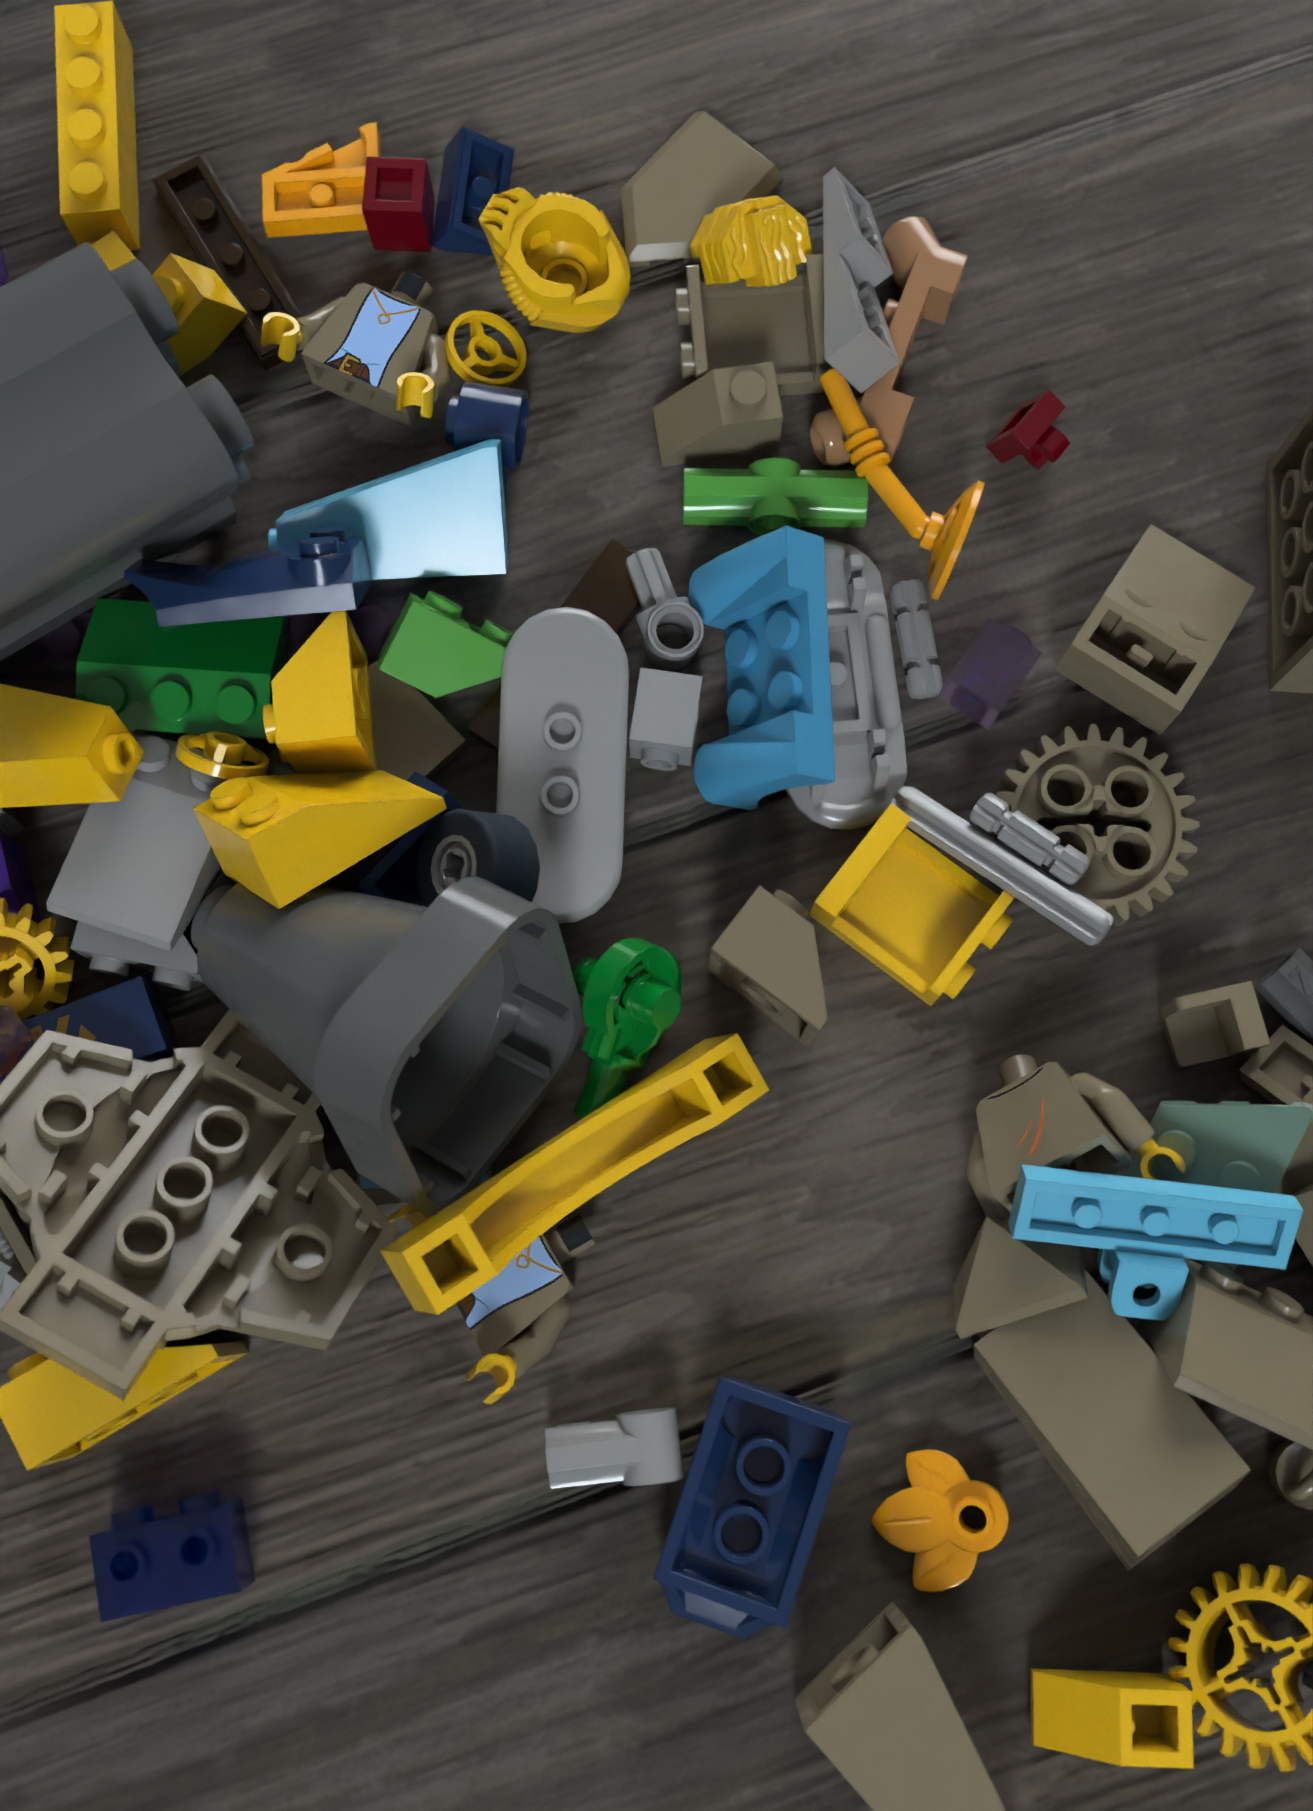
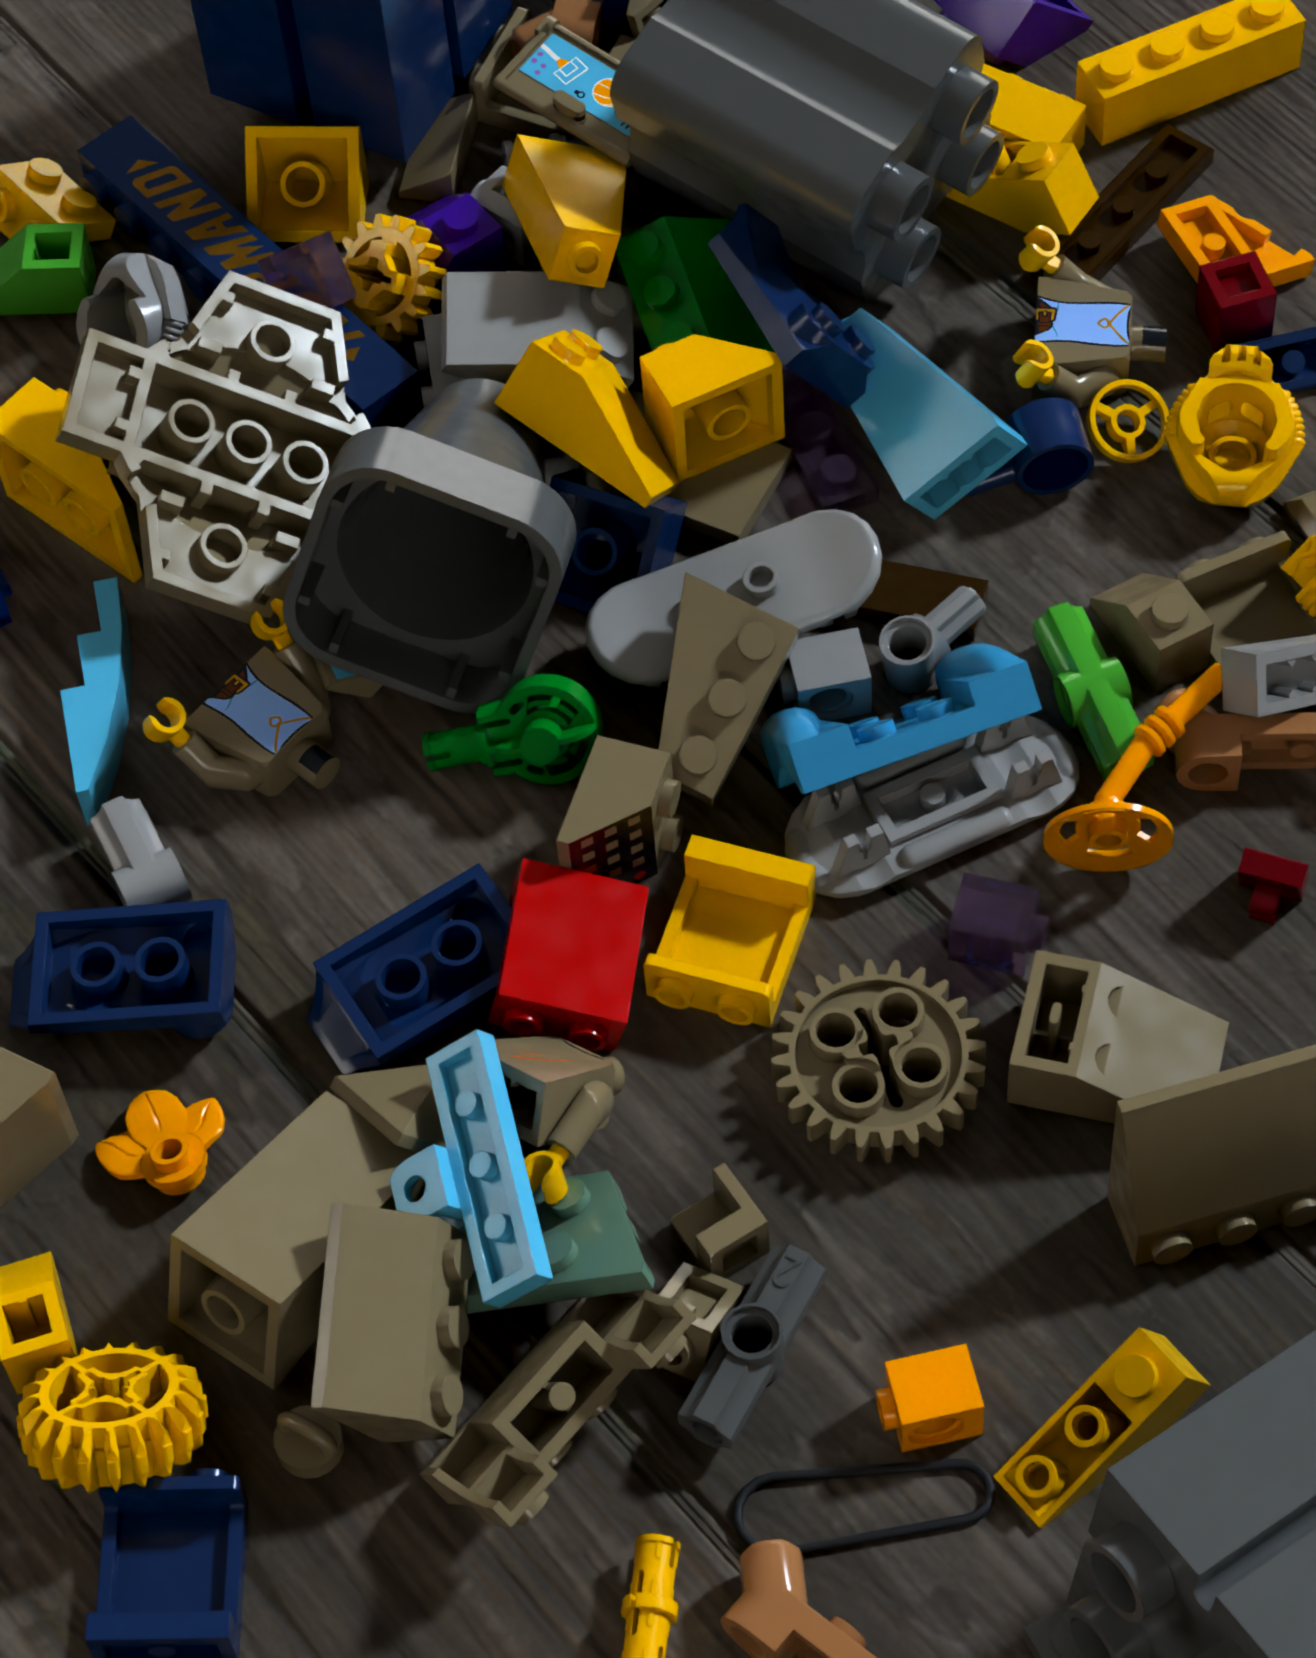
camera: 75 degrees right, 20 degrees down
(222, 750) = (632, 343): yellow piece -> none
(423, 1444) = (100, 709): none -> medium azure slope
(439, 649) = (805, 466): bright green slope -> none
(480, 846) = (611, 560): black wheel -> none
(504, 1215) = (342, 702): yellow arch -> none
(674, 817) = (718, 683): none -> dark tan wedge
(861, 1208) = (411, 973): none -> dark blue slope
(900, 1059) = (569, 955): none -> red panel
(916, 639) = (1005, 859): light grey axle -> none
(1004, 867) = (794, 976): light grey axle -> none
(1029, 839) = (826, 986): light grey axle -> none

